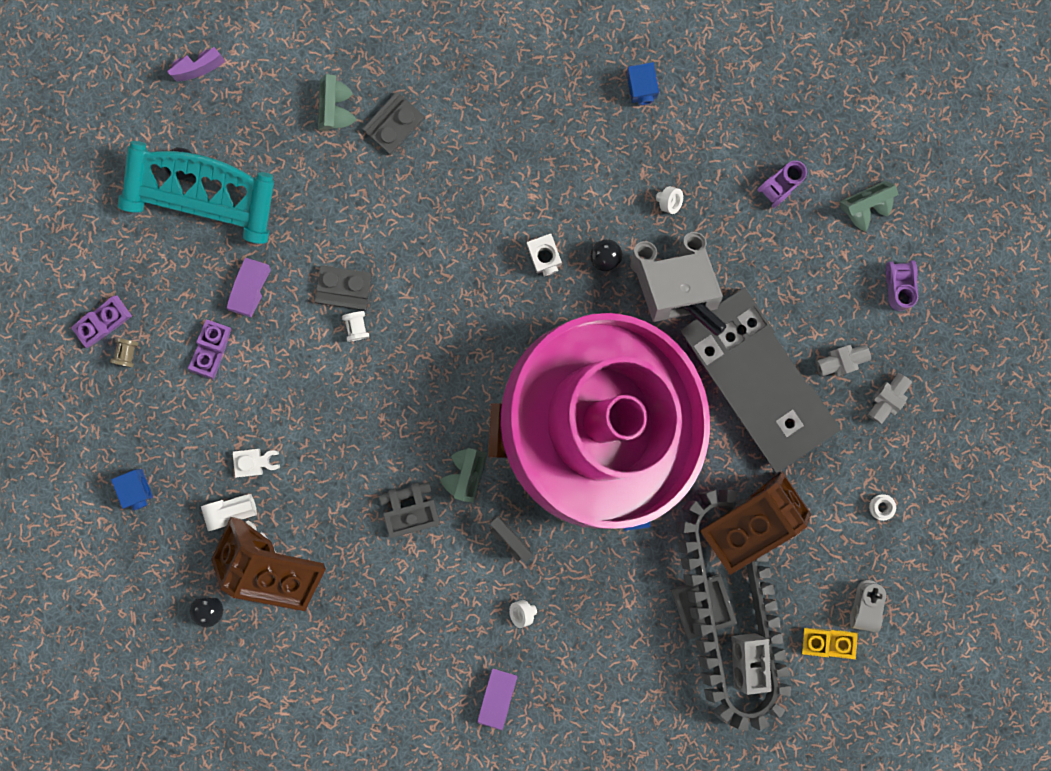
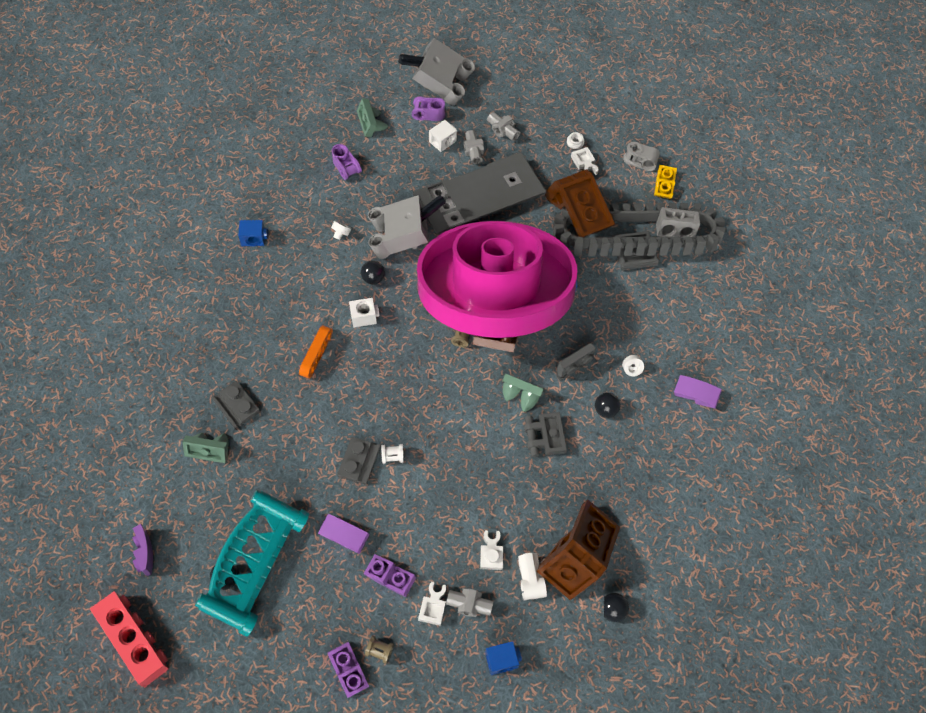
camera: 90 degrees left, 25 degrees down
(84, 80) = (106, 613): none -> coral brick
(179, 403) = (433, 608): none -> white plate
(189, 444) = (469, 602): none -> light grey axle
(459, 584) = (607, 405): none -> black piece
(479, 205) = (315, 351): none -> orange beam
(848, 522) = (584, 160): none -> white plate
(856, 314) = (443, 135): none -> white brick
(969, 288) = (438, 68): none -> light grey piece

